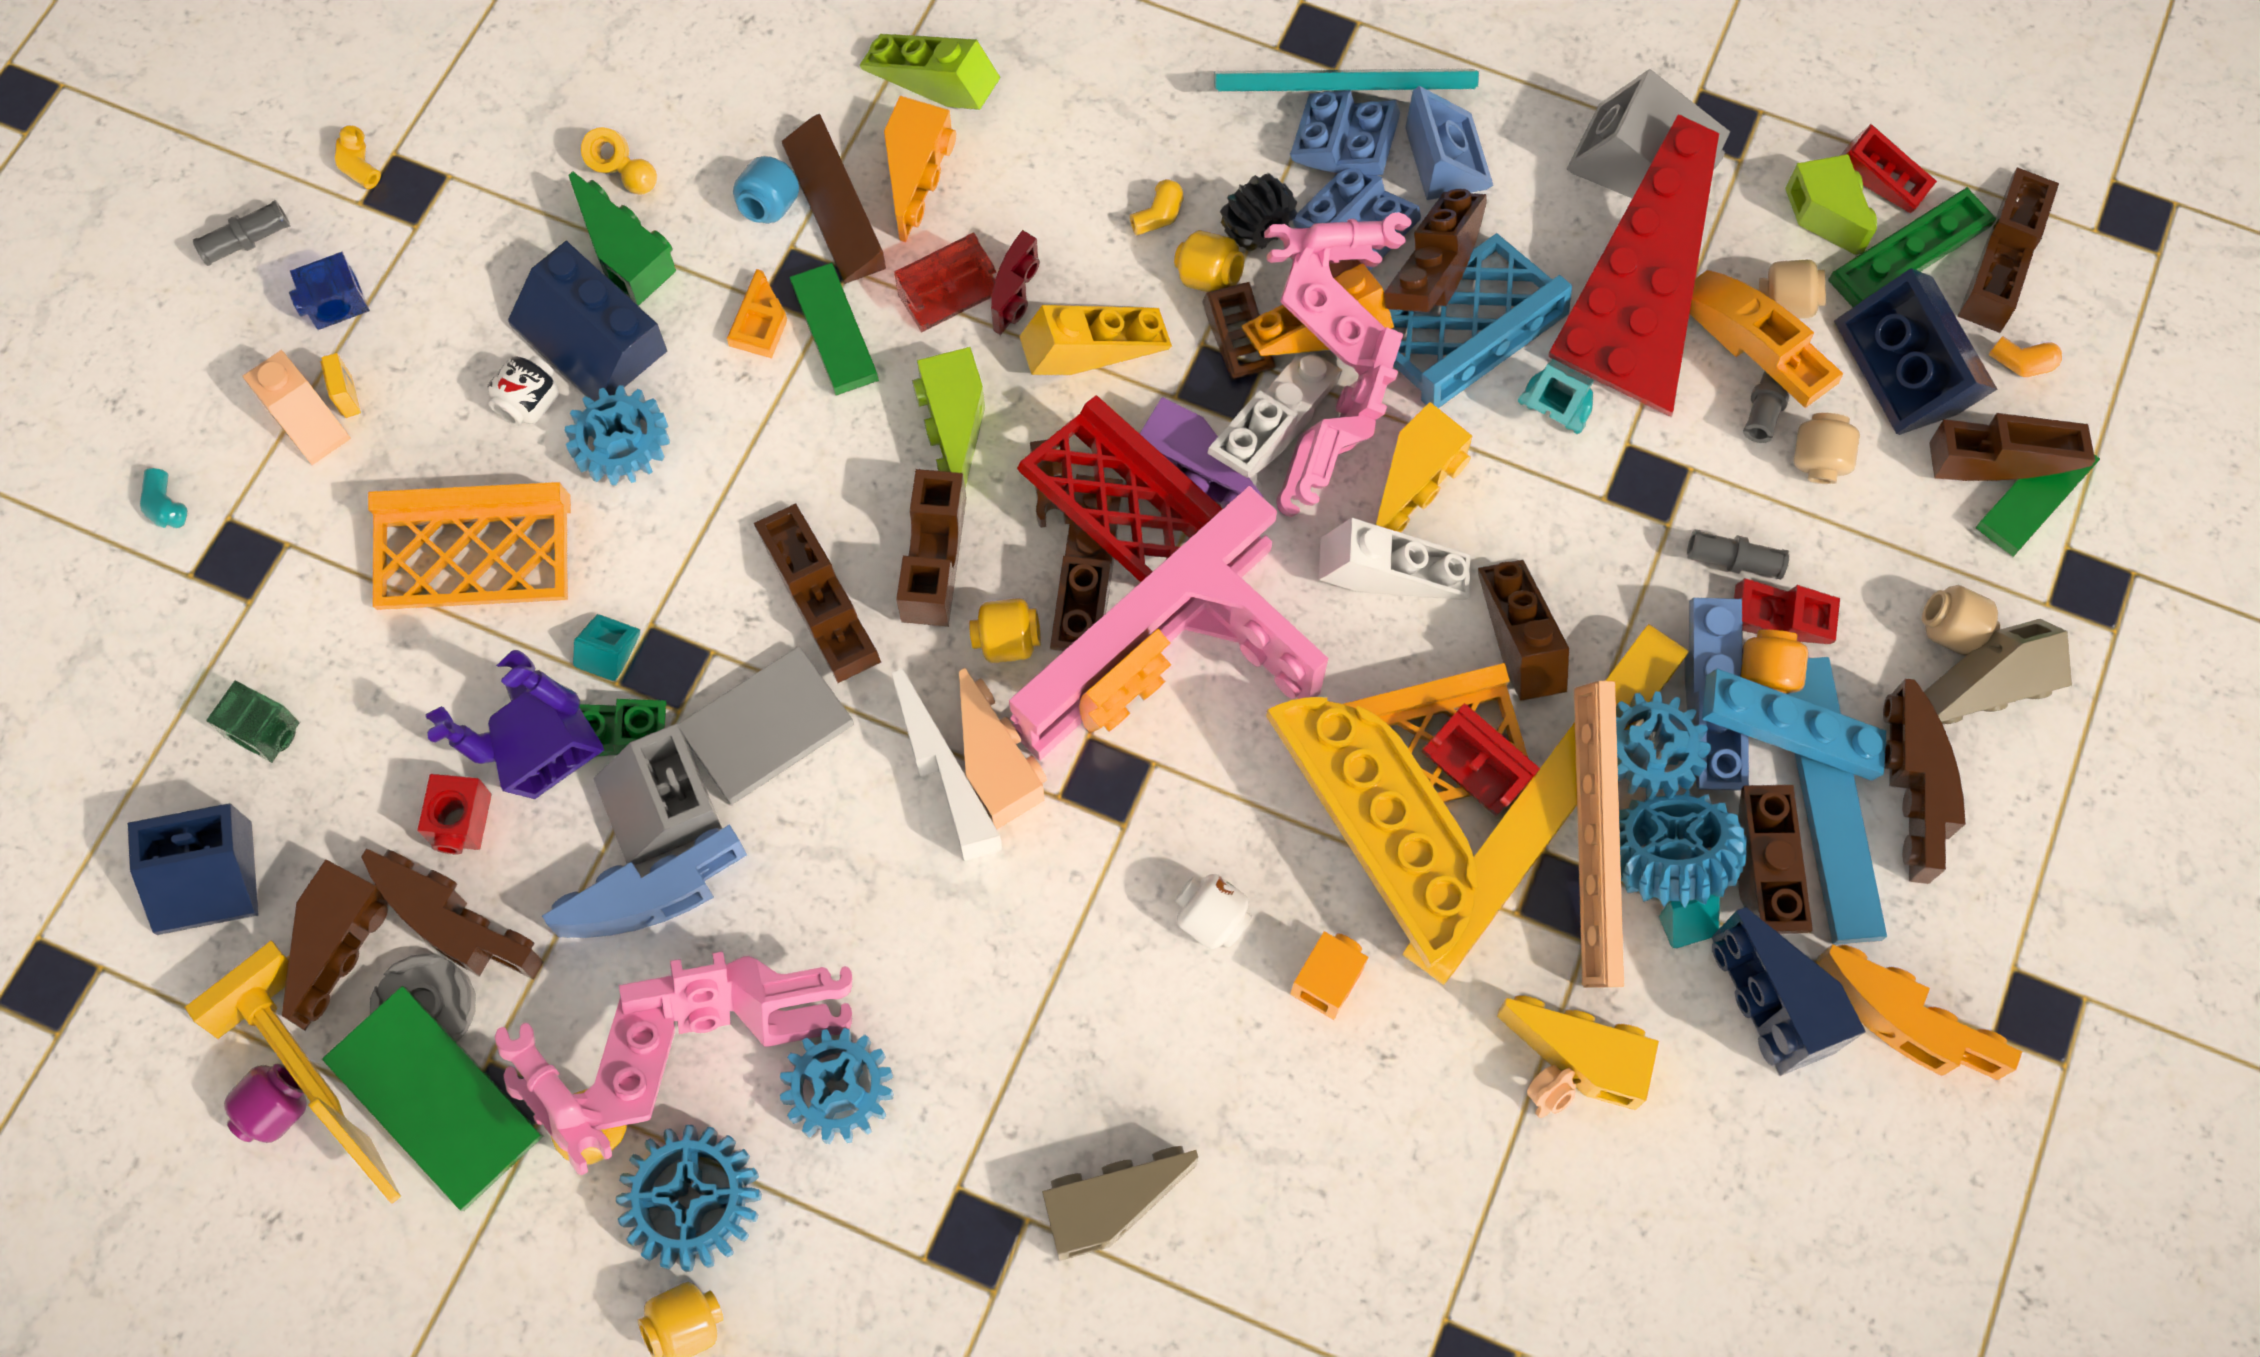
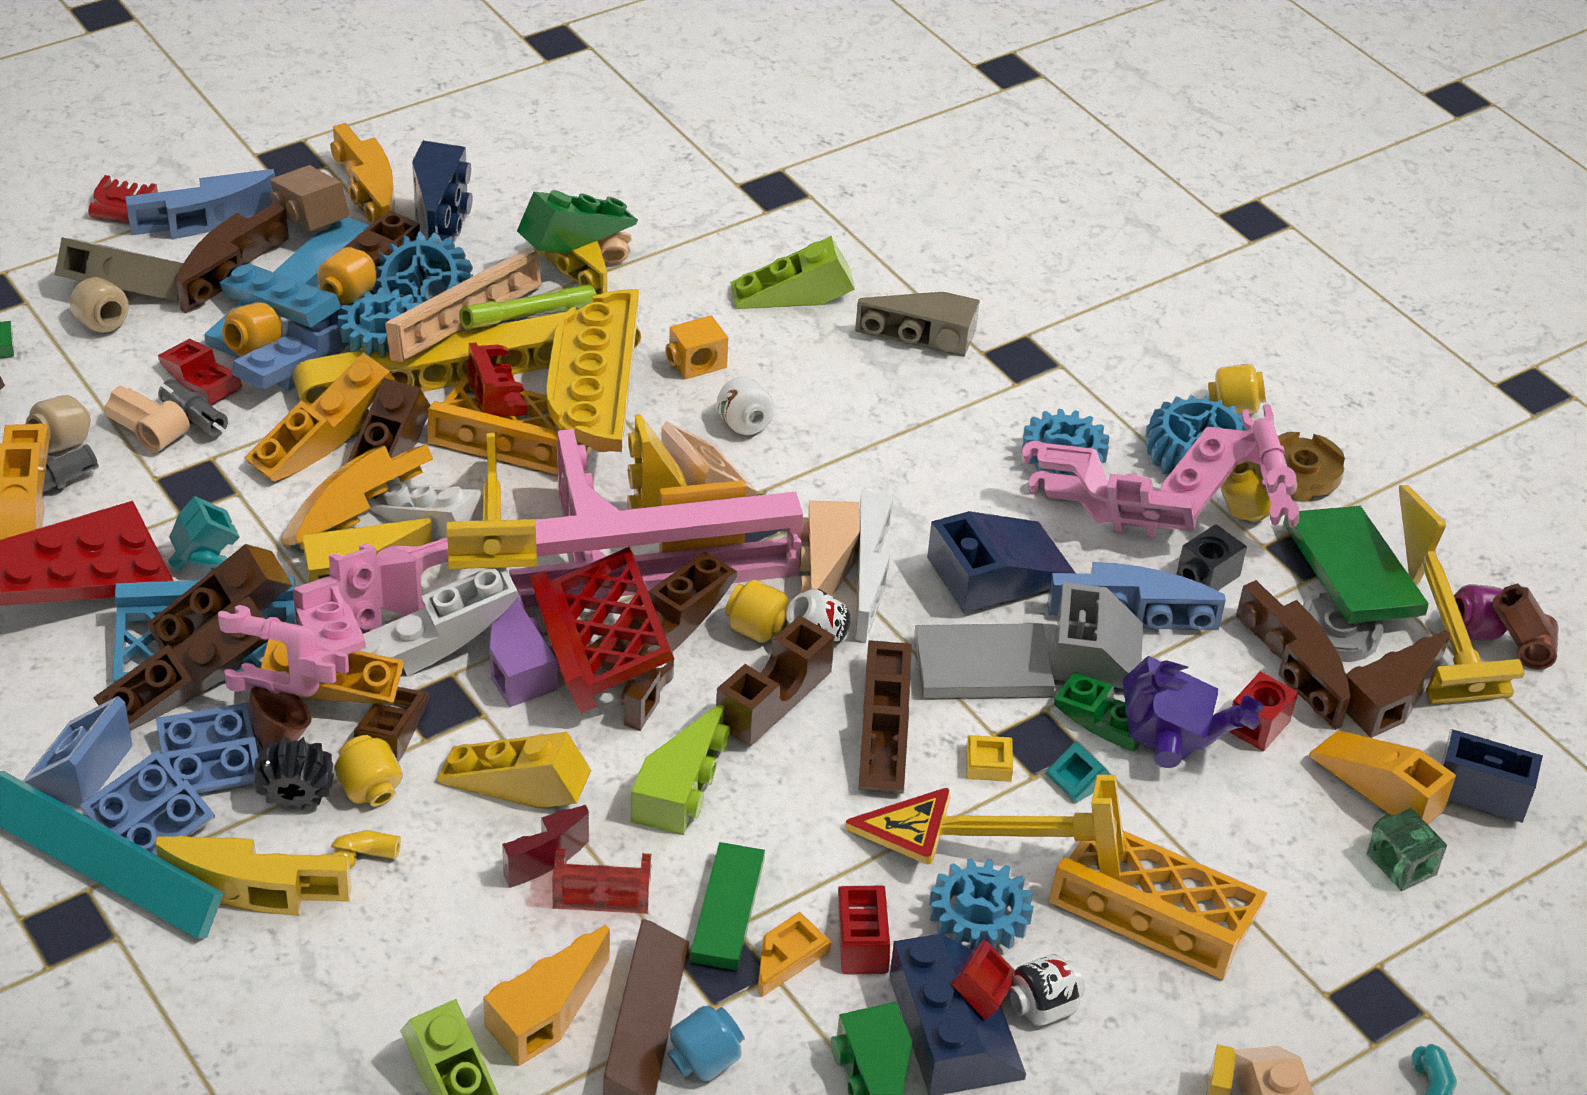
camera: 150 degrees left, 25 degrees down
(196, 1095) = (1529, 627): none -> copper piece
(300, 795) = (1387, 773): none -> light orange slope
(565, 1271) = (1325, 460): none -> pearl gold plate
(570, 348) = (984, 979): none -> red tile
(594, 1017) = (1212, 558): none -> black brick
(694, 340) = (863, 930): none -> red slope
(699, 612) = (989, 758): none -> yellow tile
(718, 480) = (919, 822): none -> yellow piece
(811, 852) = (992, 558): none -> dark blue slope
(939, 647) = (823, 611): none -> white head
(1188, 791) = (699, 459): none -> light nougat slope
(1201, 697) = (651, 468): none -> yellow slope
(1227, 119) = (258, 881): none -> yellow slope
(1306, 1174) = (799, 279): none -> lime slope
(1365, 614) = (493, 540): none -> yellow piece
(1459, 313) = (245, 573): none -> reddish brown slope
(1490, 534) = (346, 491): none -> light orange slope
(1525, 949) = (494, 312): none -> lime piece
(1592, 1044) = (568, 222): none -> green slope
(1599, 602) = (318, 429): none -> light orange slope
(1734, 757) = (347, 275): none -> light orange head
(1751, 511) = (152, 423): none -> light nougat piece
(1923, 907) = (310, 198): none -> medium nougat brick
(2023, 848) = (200, 208): none -> medium blue slope
(2125, 804) = (111, 200): none -> red piece

